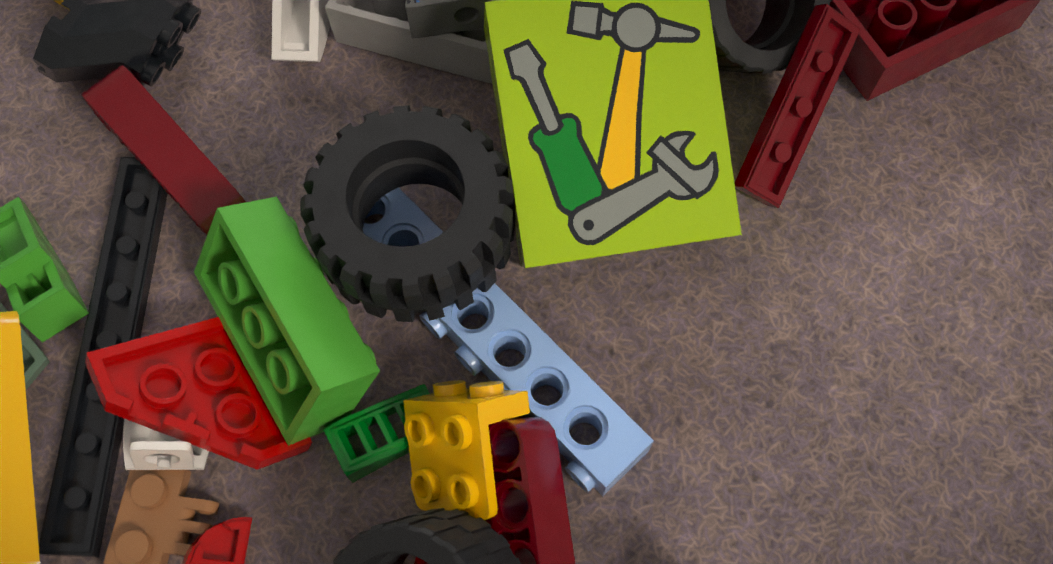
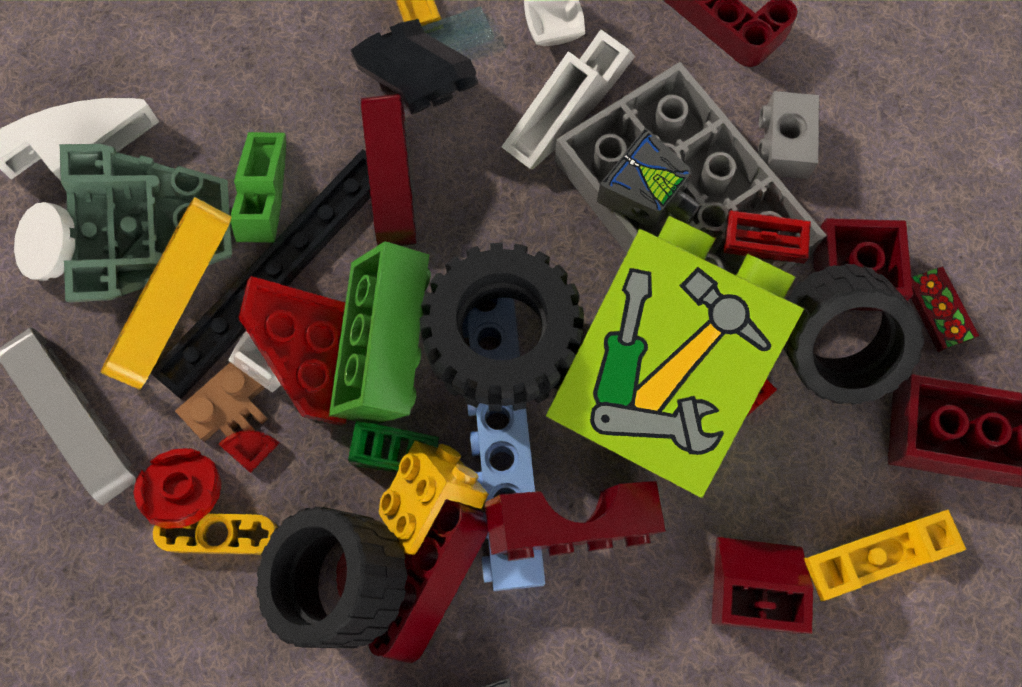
camera: 35 degrees right, 5 degrees up
(592, 386) = (528, 523): none -> dark red arch
(797, 106) = (825, 434): dark red tile -> none
(857, 288) = (762, 587): none -> dark red slope
(933, 178) = (884, 554): none -> yellow slope

